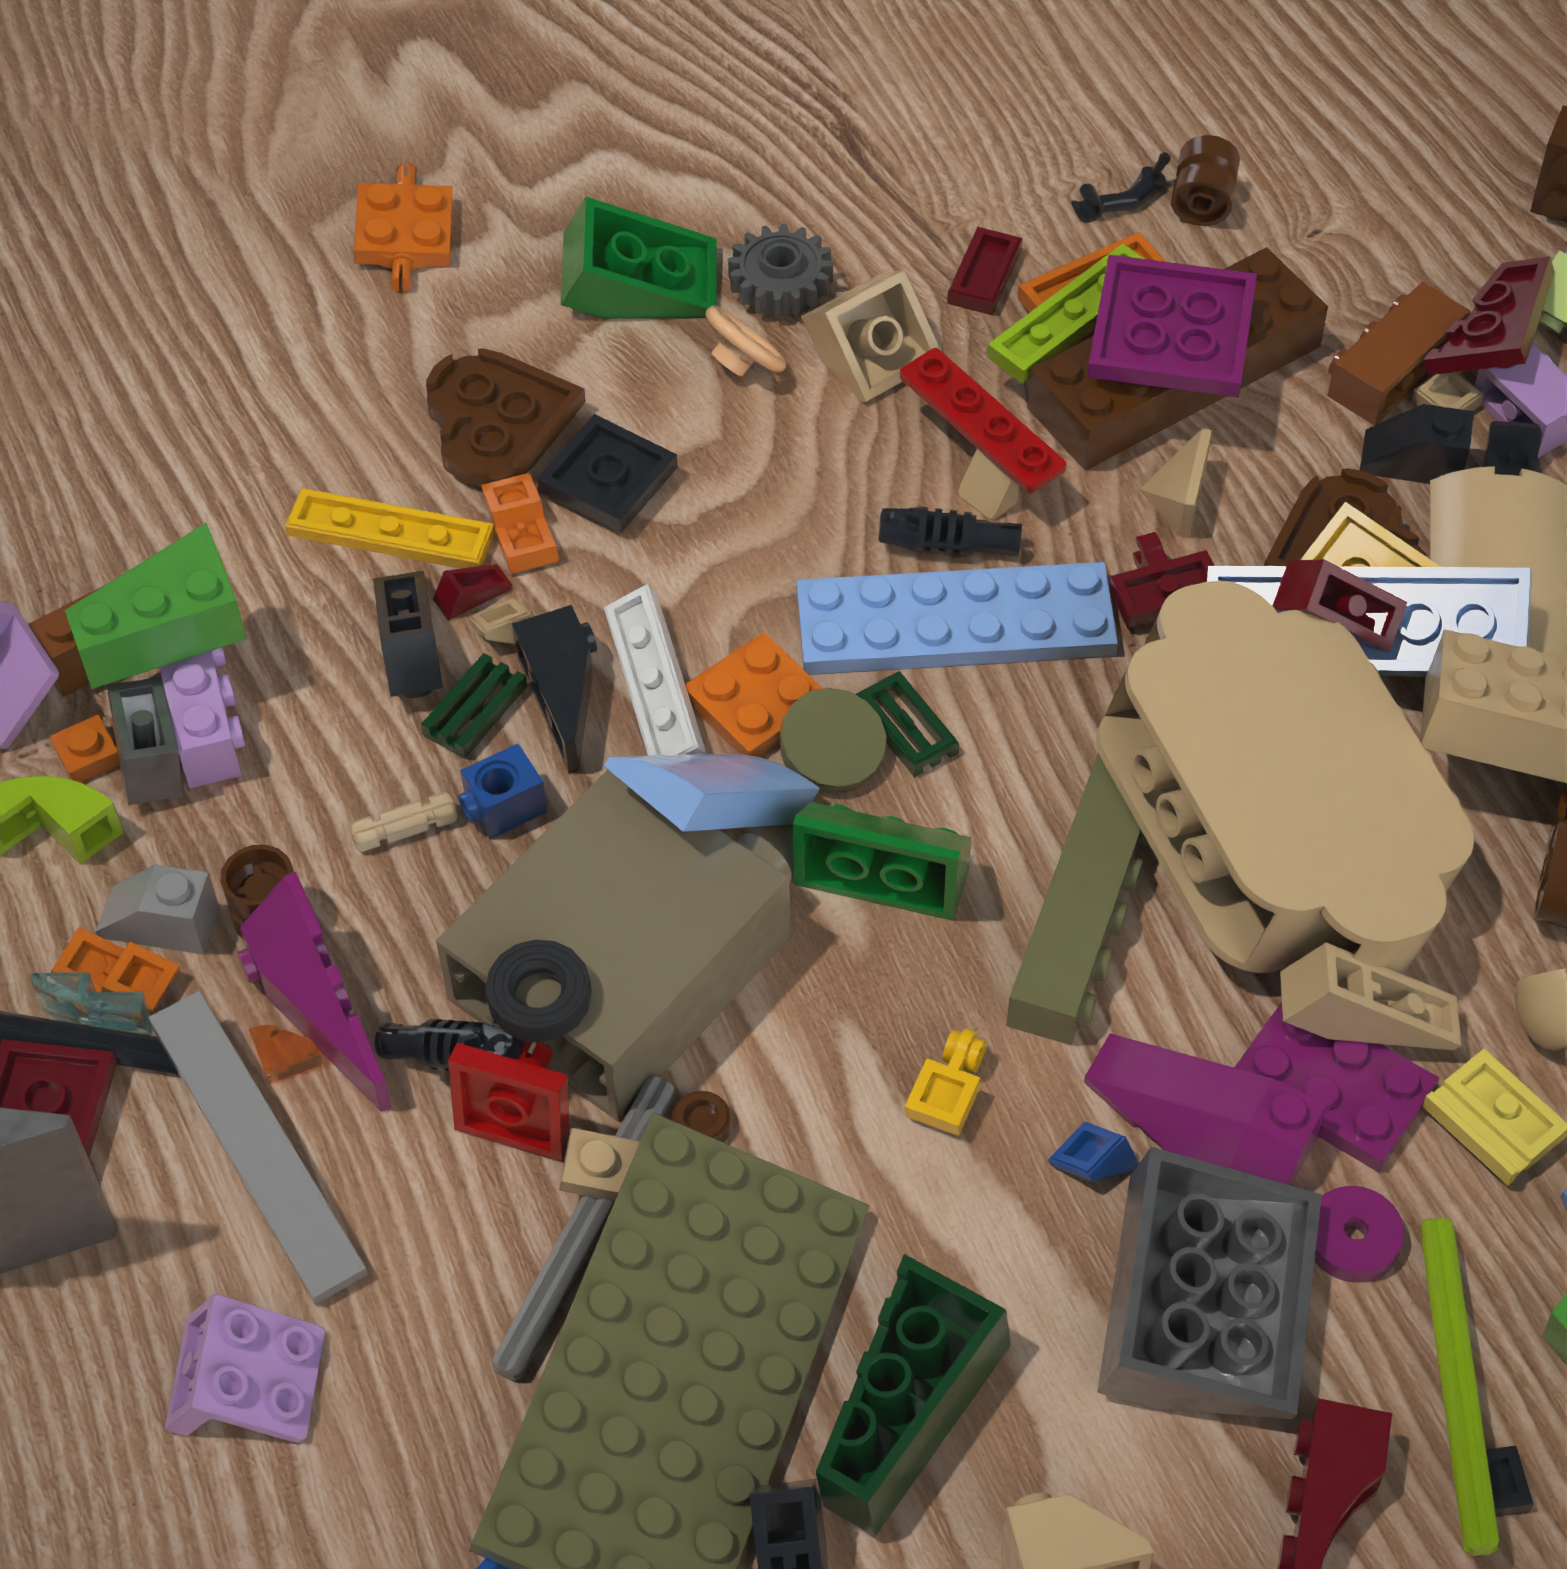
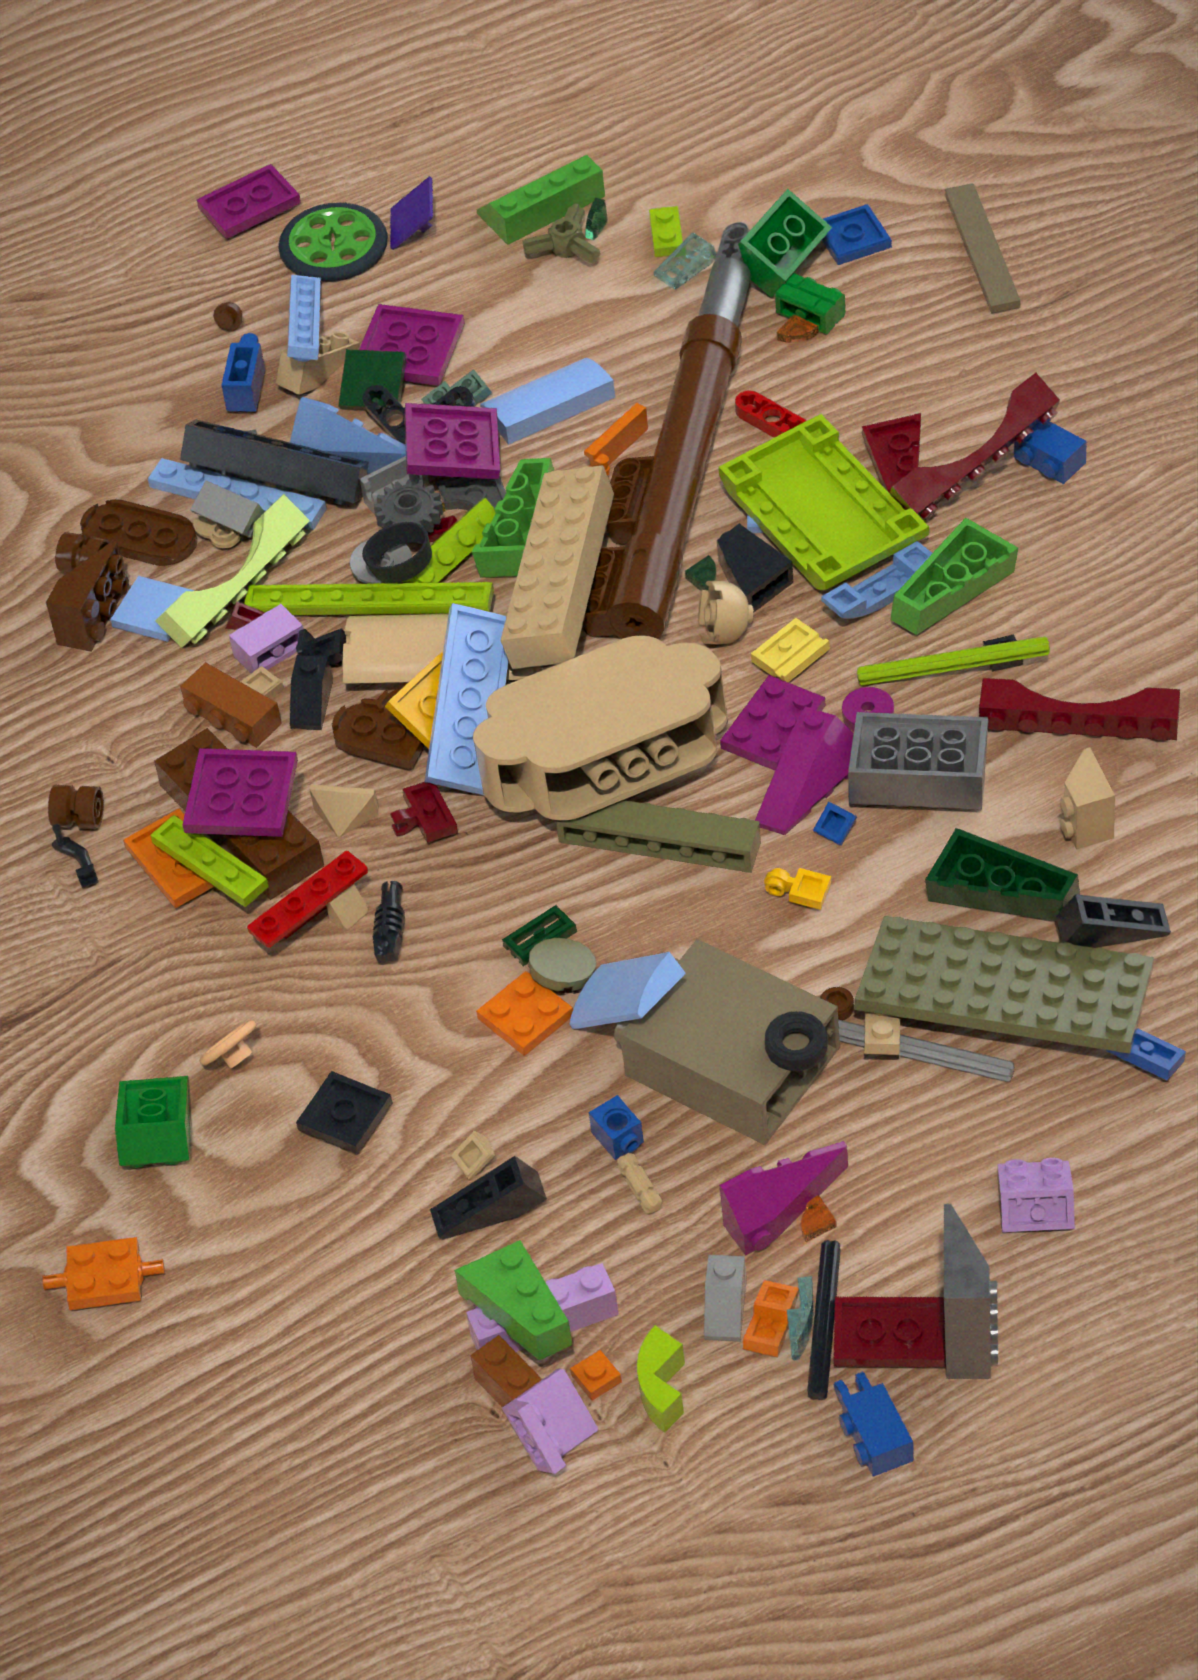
camera: 90 degrees left, 5 degrees down
(145, 741) = (603, 1321): flat silver slope -> none
(250, 878) = (711, 1233): reddish brown wheel -> none
(258, 1148) = (887, 1210): light grey tile -> none
(389, 529) = (393, 1236): yellow tile -> none
(436, 1039) = (813, 1111): black hinge -> none
(467, 700) = (546, 1157): dark green tile -> none
(468, 588) = (443, 1178): dark red piece -> none
(497, 414) = (292, 1182): reddish brown plate -> none
(511, 1099) = (847, 1077): red tile -> none
(520, 523) = (379, 1163): orange slope -> none
(559, 670) = (524, 1110): black slope -> none
(653, 675) = (518, 1063): white tile -> none
(780, 271) = (156, 1036): dark grey gear -> none
(871, 333) = (215, 977): tan slope -> none
(880, 859) = (653, 914): green slope -> none
(955, 618) = (454, 919): light blue plate -> none
(984, 271) = (148, 929): dark red tile -> none
(1341, 597) = (469, 702): dark red slope -> none
(1366, 1003) = (737, 697): tan slope -> none
(1502, 322) = (221, 642): dark red wing -> none

